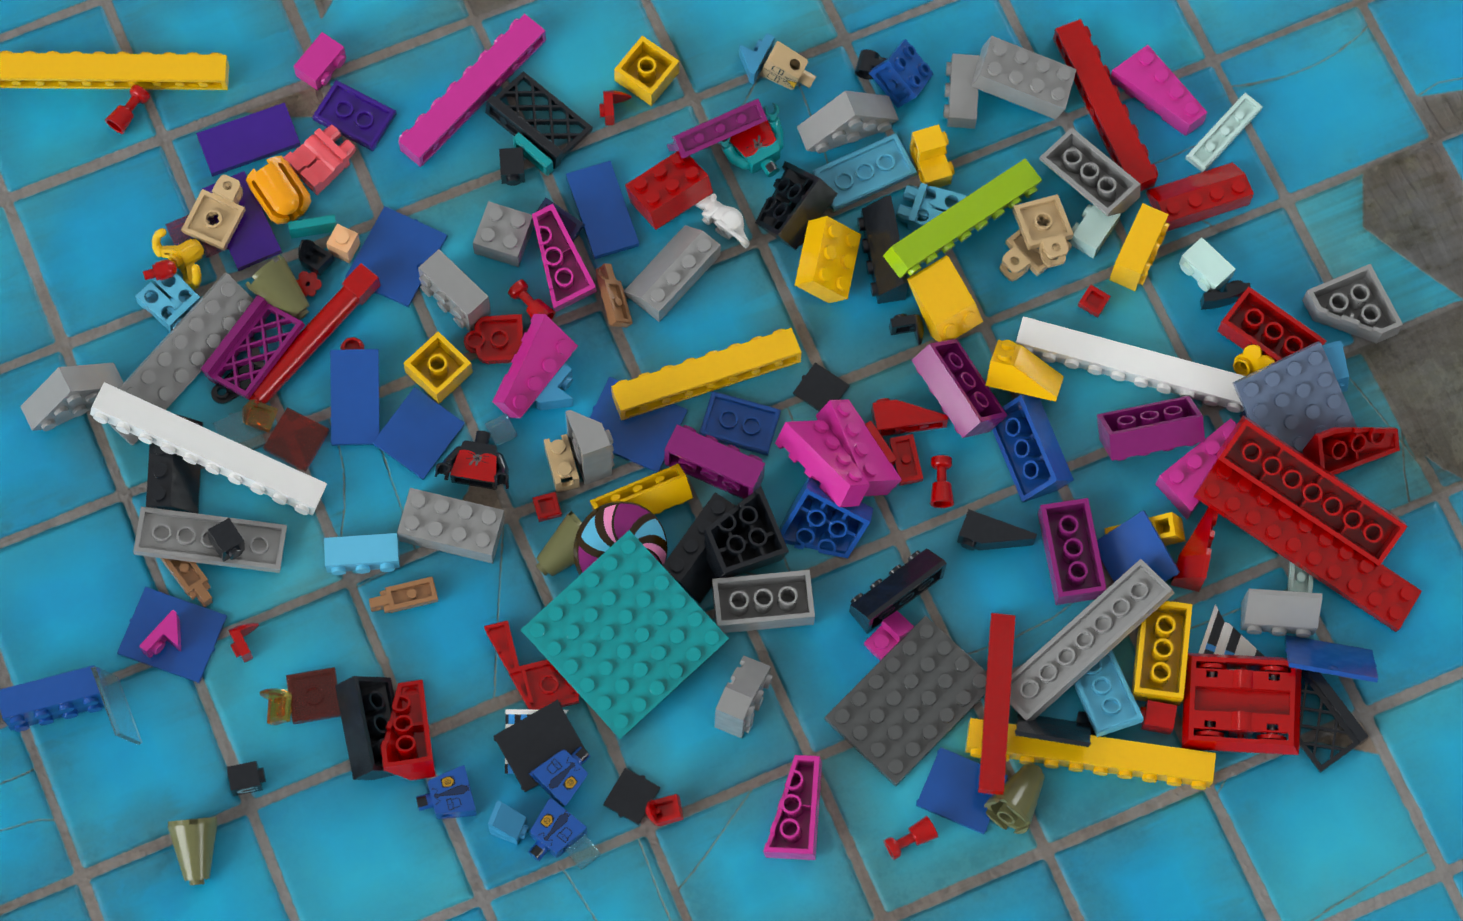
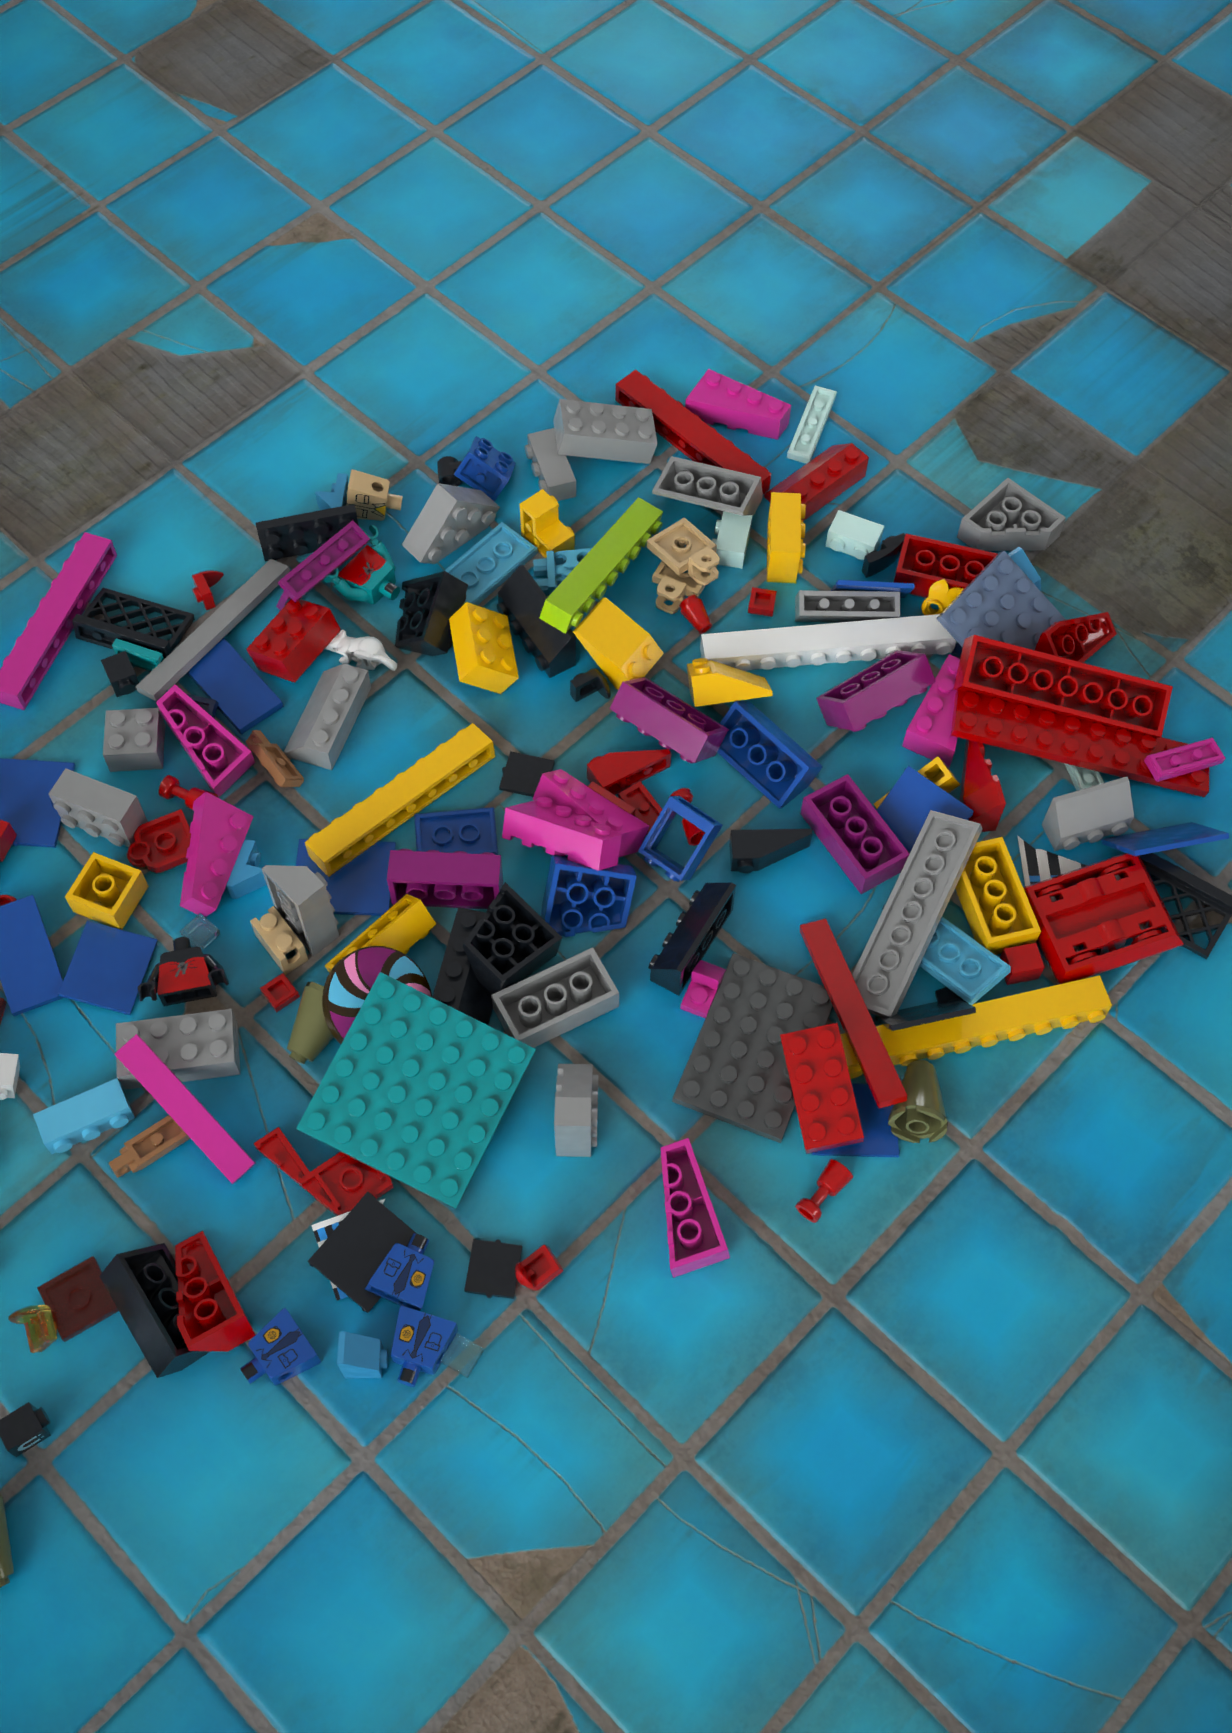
camera: 20 degrees left, 10 degrees down
(440, 578) = (185, 1108): none -> dark pink tile
(605, 150) = (212, 630): none -> light grey tile
(646, 70) = (228, 544): yellow brick -> none
(718, 86) = (302, 532): none -> black plate
(940, 489) = (694, 815): none -> blue window
(942, 757) = (822, 1088): none -> red brick
(1030, 291) = (695, 612): none -> red cone
(1165, 336) = (845, 606): none -> light grey brick
(1192, 329) = (850, 585): none -> blue piece
(1389, 594) = (1184, 759): none -> dark pink tile

